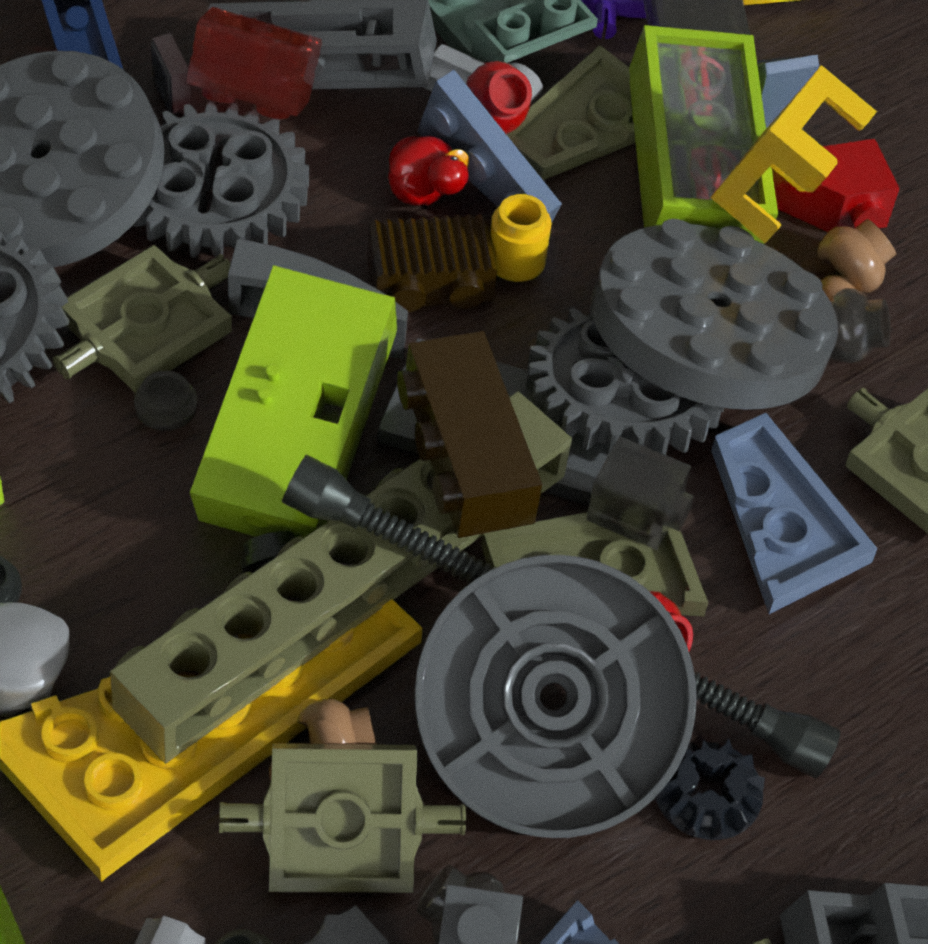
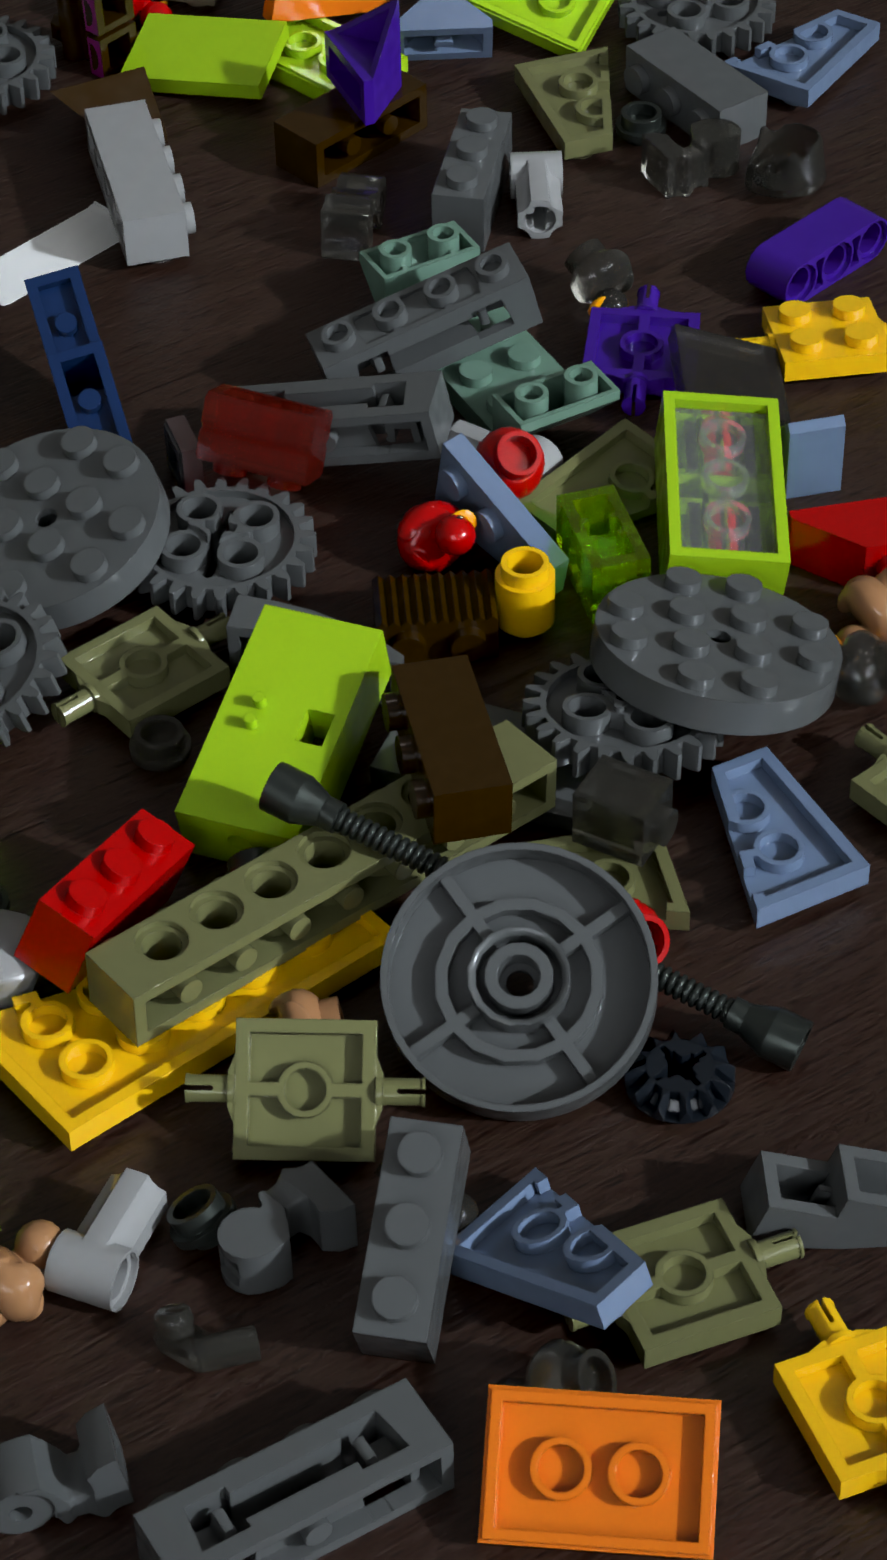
camera: 10 degrees right, 10 degrees down
(122, 597) = (103, 897): none -> red brick
(593, 190) = (599, 543): none -> clear neon green brick
(790, 151) = (790, 491): yellow panel -> none

